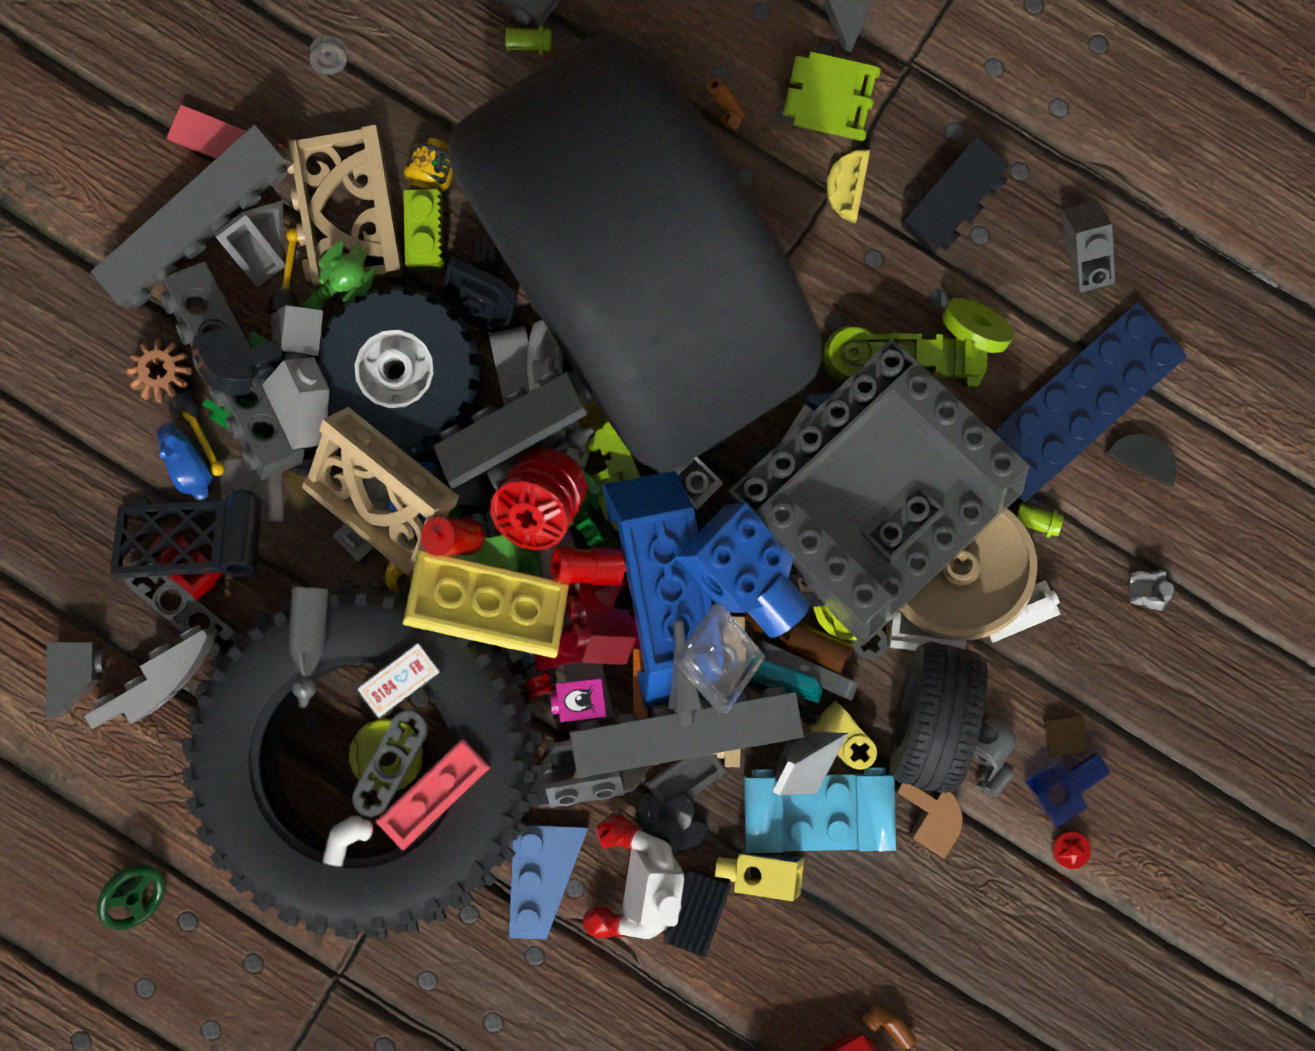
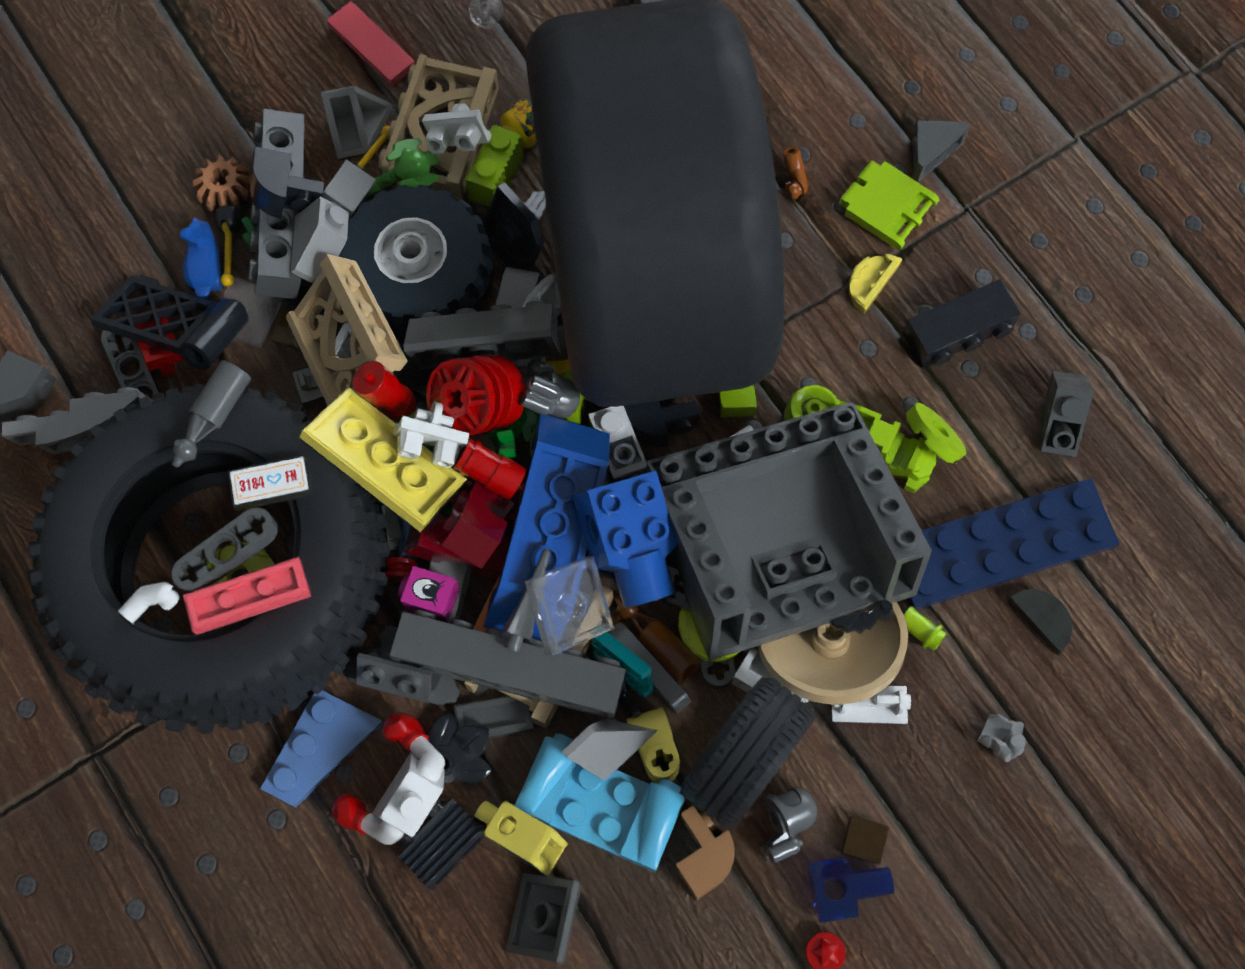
camera: 30 degrees right, 15 degrees down
(193, 217) = (298, 80): dark grey brick -> none
(373, 212) = (455, 128): none -> white hips
(538, 563) = (430, 429): none -> white hips
(604, 462) = (551, 395): none -> dark grey piece
(816, 934) = (543, 918): none -> dark grey slope
(985, 543) = (863, 620): none -> black piece

